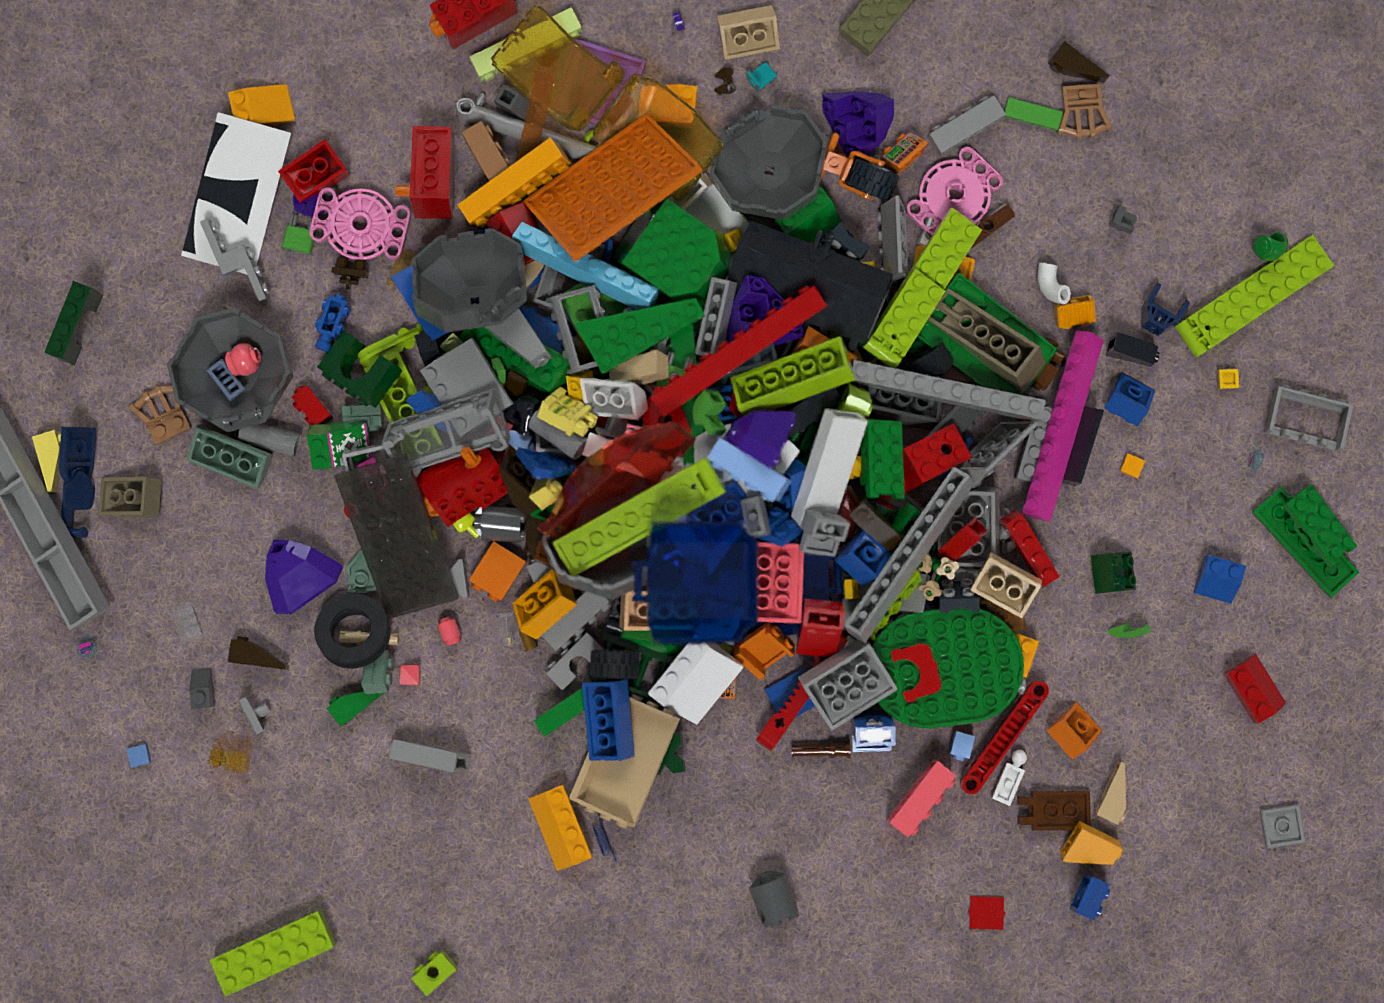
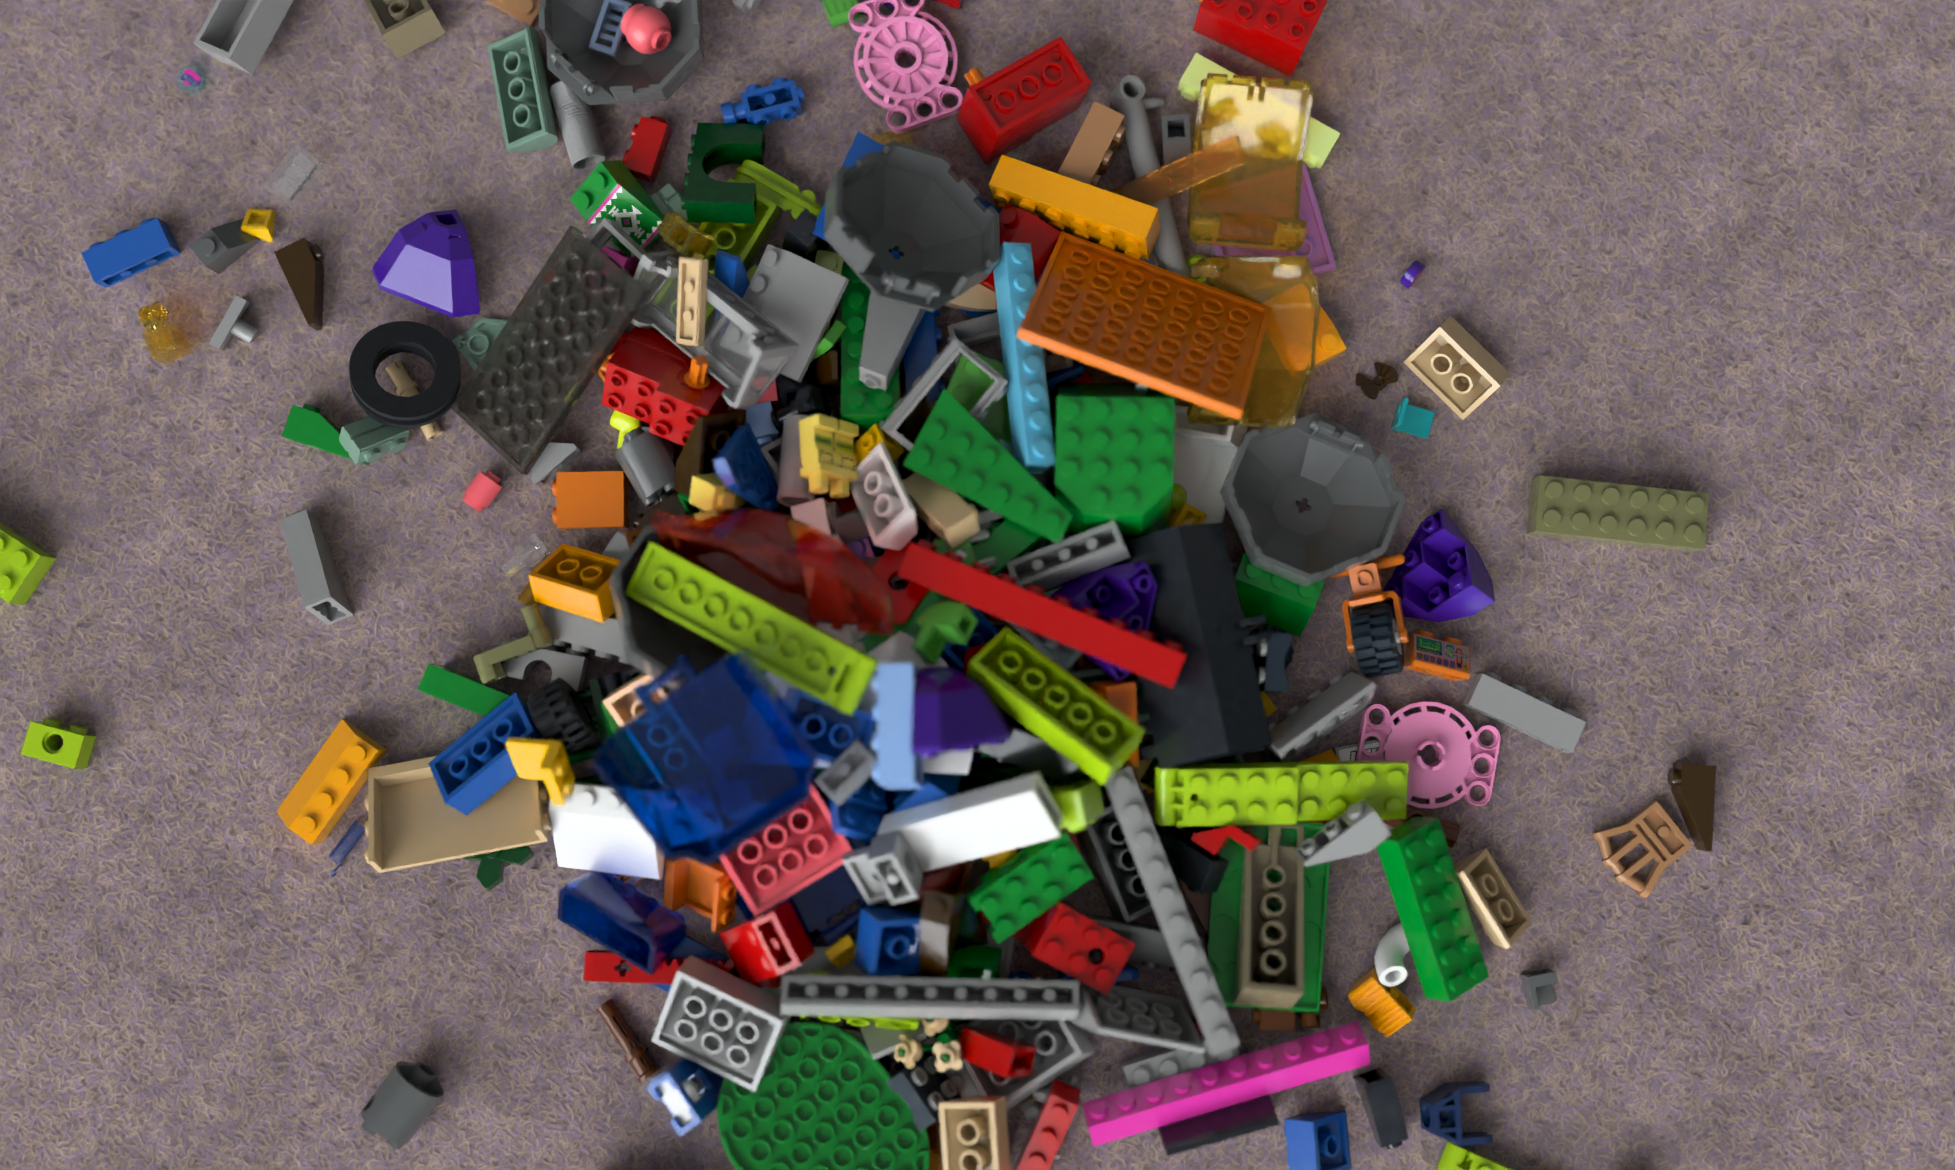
camera: 65 degrees right, 0 degrees up
(138, 755) = (102, 223): medium blue tile -> none
(168, 748) = (130, 252): none -> blue brick
(202, 664) = (259, 226): none -> yellow slope
(359, 271) = (838, 73): dark brown hips -> none
(382, 415) = (685, 235): none -> clear yellow brick
(409, 675) = (400, 479): coral slope -> none
(426, 433) = (691, 301): none -> tan tile
(555, 687) = (491, 662): none -> olive beam
(635, 687) = (543, 761): none -> yellow bracket
(751, 705) = (621, 919): none -> clear blue windscreen
(925, 341) = (1216, 839): none -> red slope
(929, 677) = (794, 1123): red piece -> none
(970, 265) = (1348, 835): none -> light grey slope
(1033, 114) = (1596, 786): bright green tile -> none
(1040, 248) = (1432, 909): none -> green brick
(1056, 213) = (1491, 898): none -> tan slope

